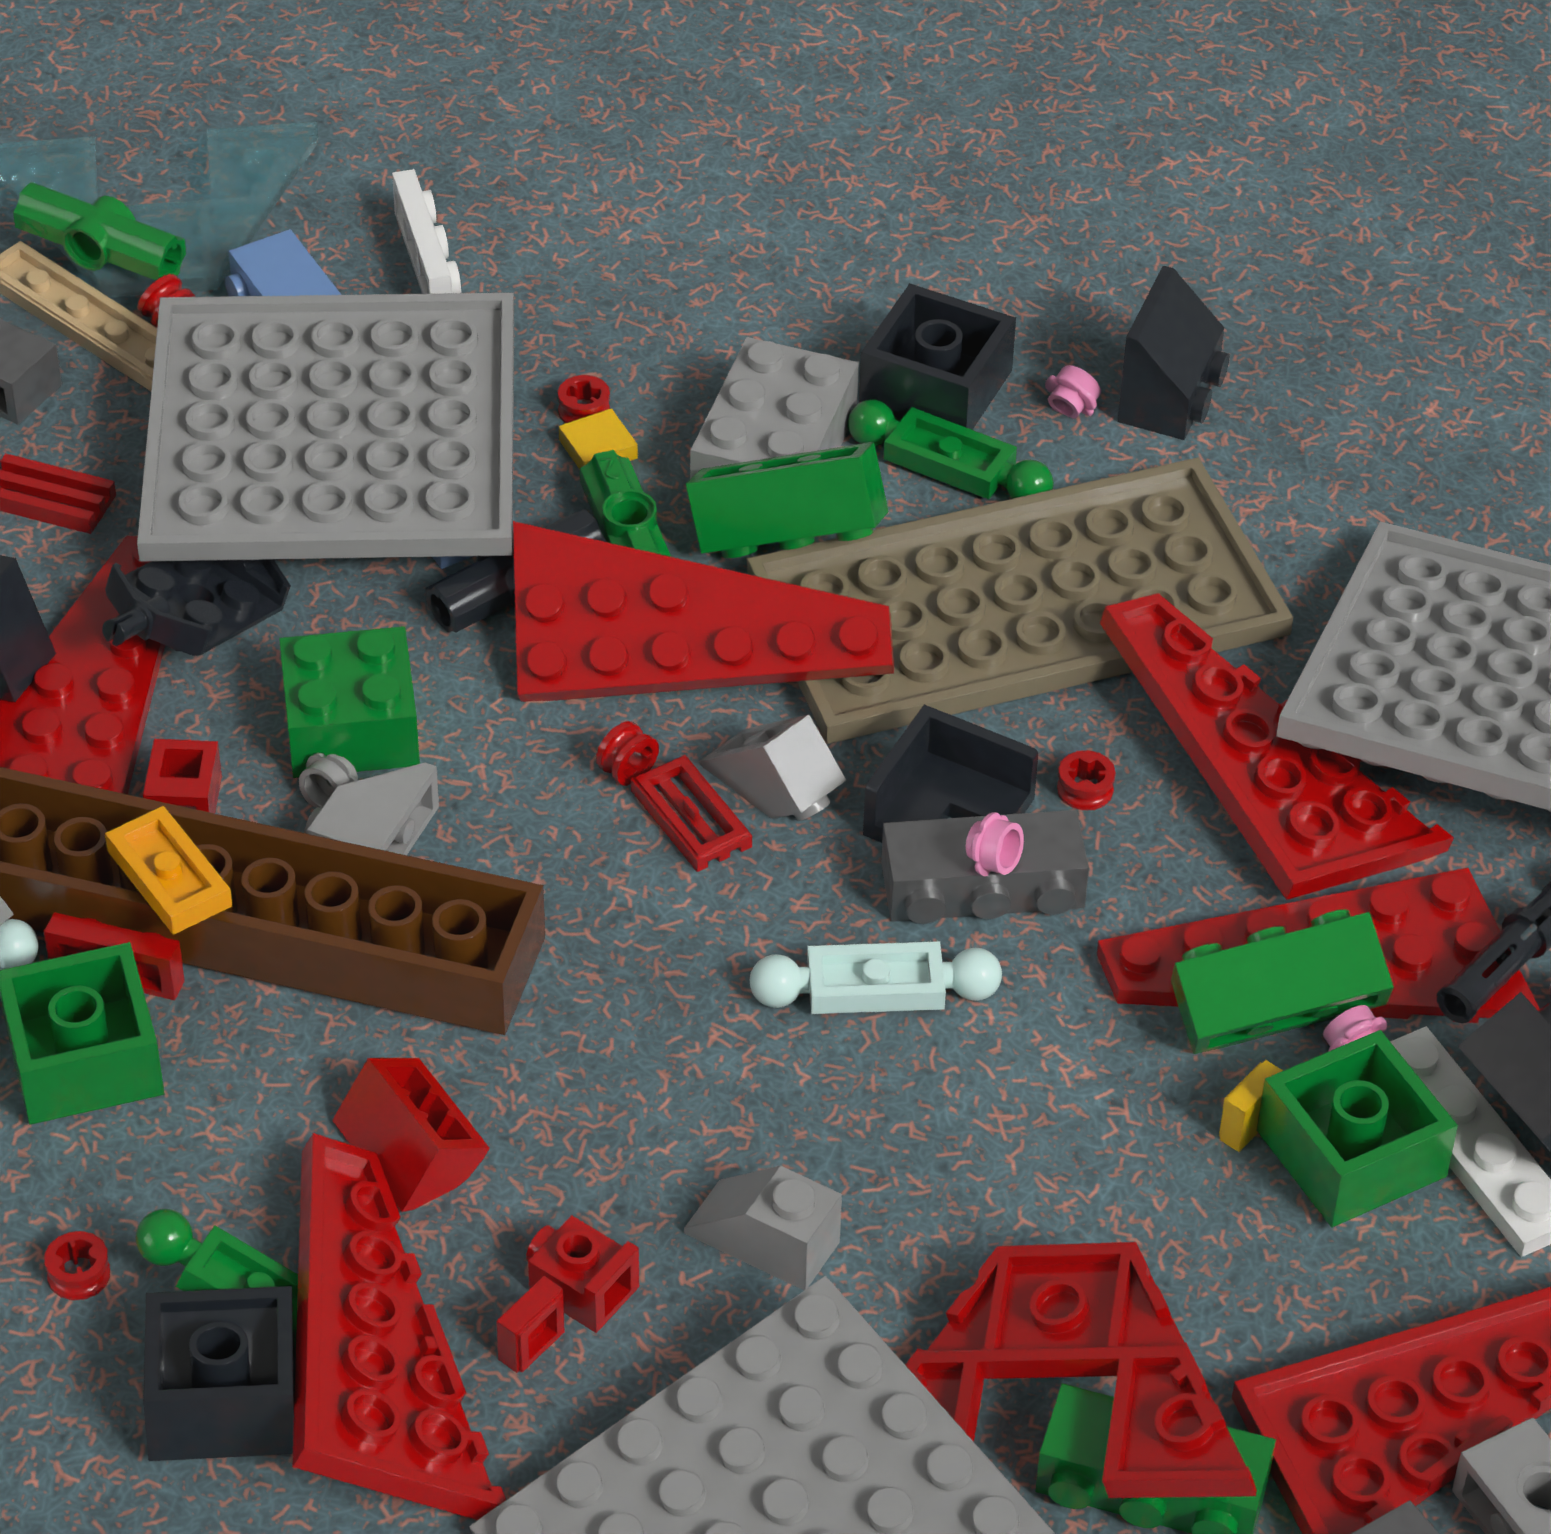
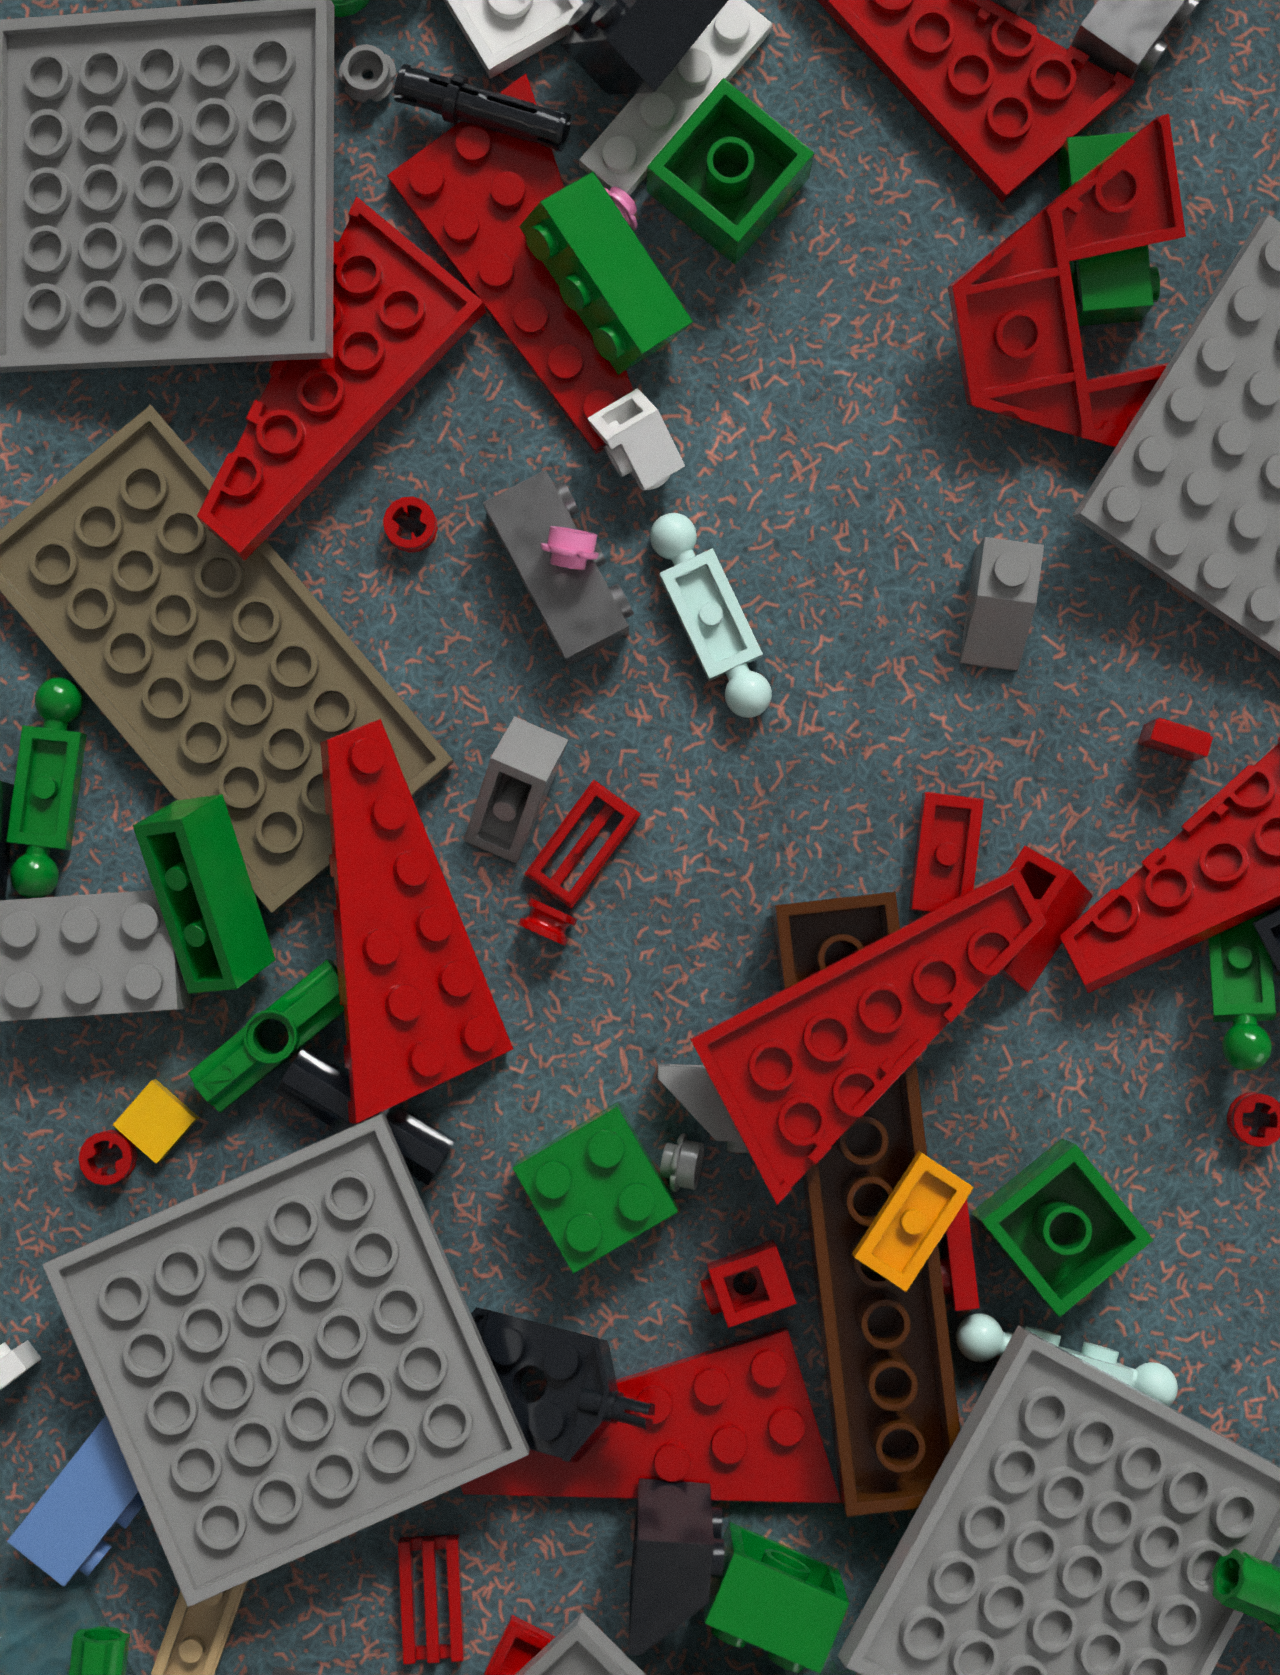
camera: 110 degrees left, 40 degrees up
(166, 286) = (139, 1619): red bush -> none
(383, 878) = (837, 1040): none -> red wing
(518, 1088) = (945, 850): none -> red plate
(588, 1266) = (1086, 739): red brick -> none
(947, 771) = (460, 638): black panel -> none
(1089, 961) = (637, 440): none -> white brick
(1243, 1107) = (726, 268): yellow tile -> none

